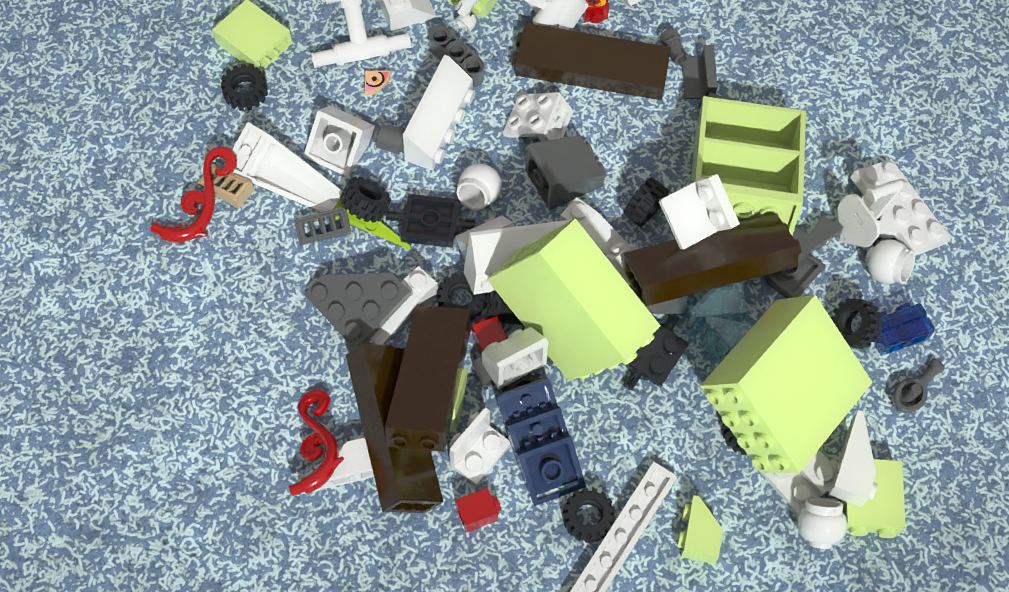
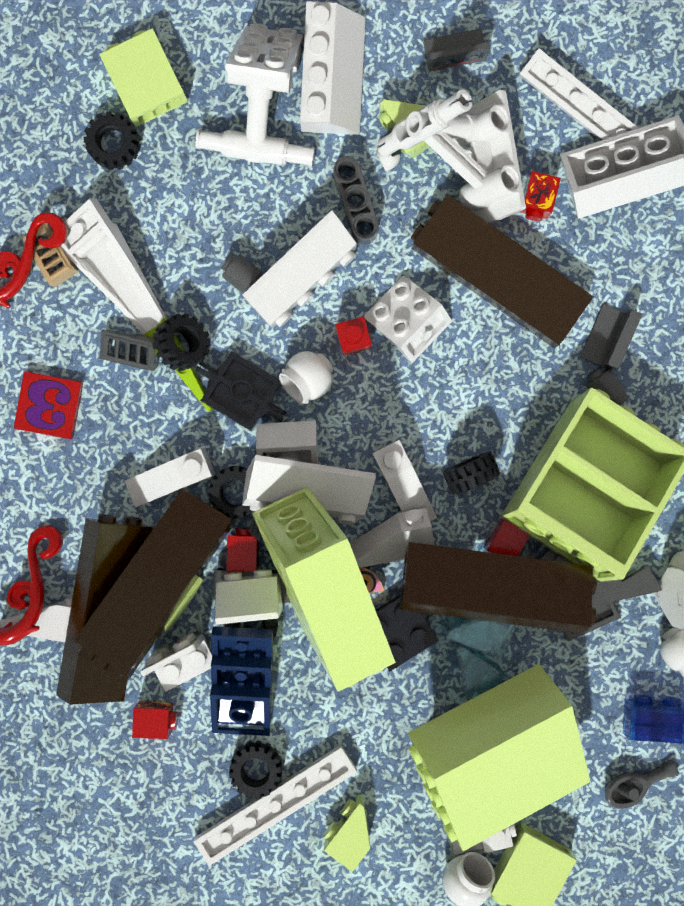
camera: 25 degrees right, 25 degrees up
(270, 297) = (48, 405): none -> tile
(338, 140) = (186, 251): white slope -> none
(358, 302) = (127, 456): dark grey plate -> none
(375, 81) = (256, 192): light nougat tile -> none
(501, 145) = (353, 336): none -> red brick
(563, 169) = (406, 395): dark grey slope -> none
(672, 39) = (601, 284): dark grey pin -> none
(698, 211) = (505, 540): white bracket -> none
(856, 466) = (523, 856): white slope -> none
(869, 322) = (628, 697): black tyre -> none

